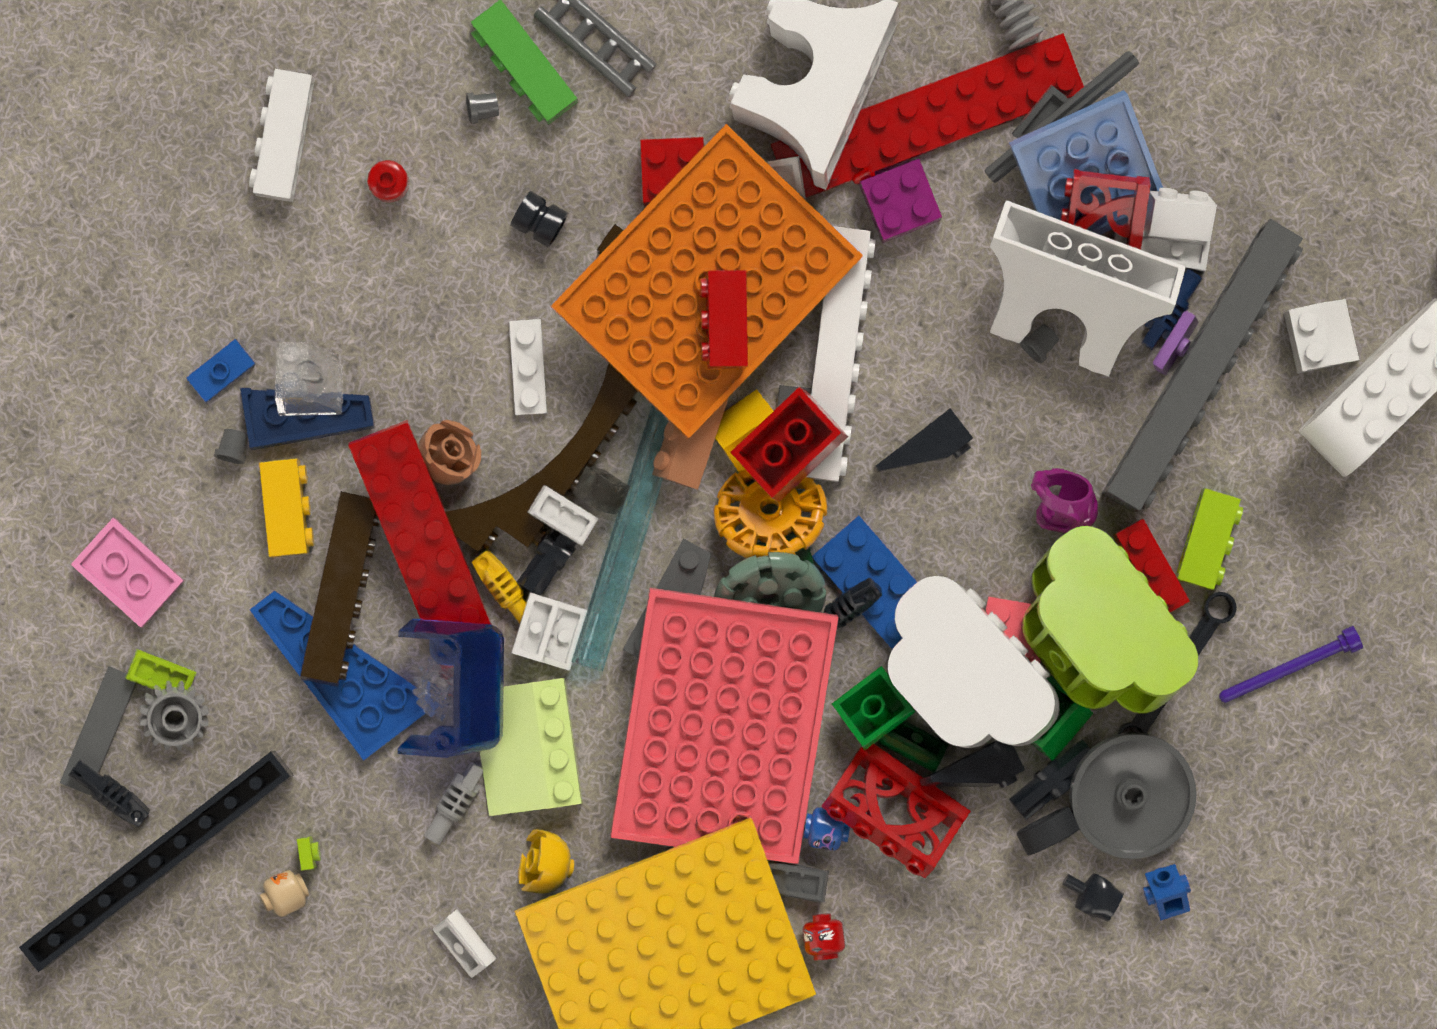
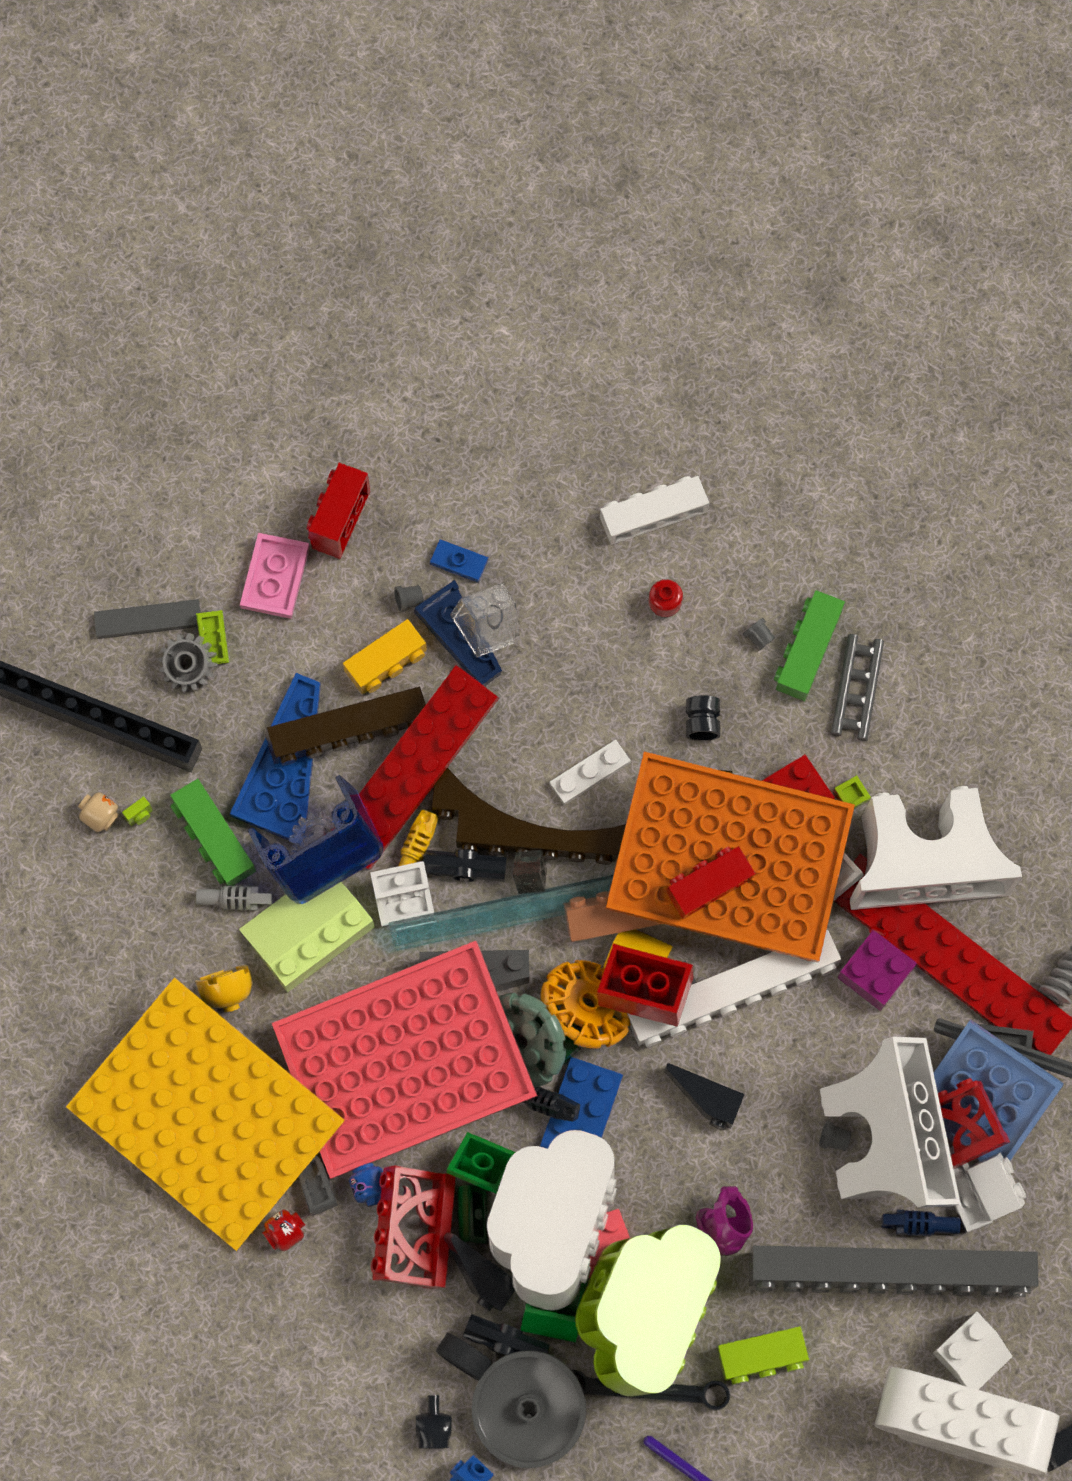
camera: 60 degrees right, 15 degrees down
(96, 467) = (338, 510): none -> red brick
(111, 794) = (105, 650): black hinge -> none
(374, 789) = (212, 833): none -> bright green brick
(449, 452) = (493, 746): nougat cylinder -> none
(464, 943) = (131, 963): white brick -> none
(562, 515) = (494, 852): white plate -> none
(704, 114) = (852, 792): none -> lime plate
(1149, 559) = (716, 1320): red brick -> none
(1176, 343) = (898, 1239): medium lavender plate -> none

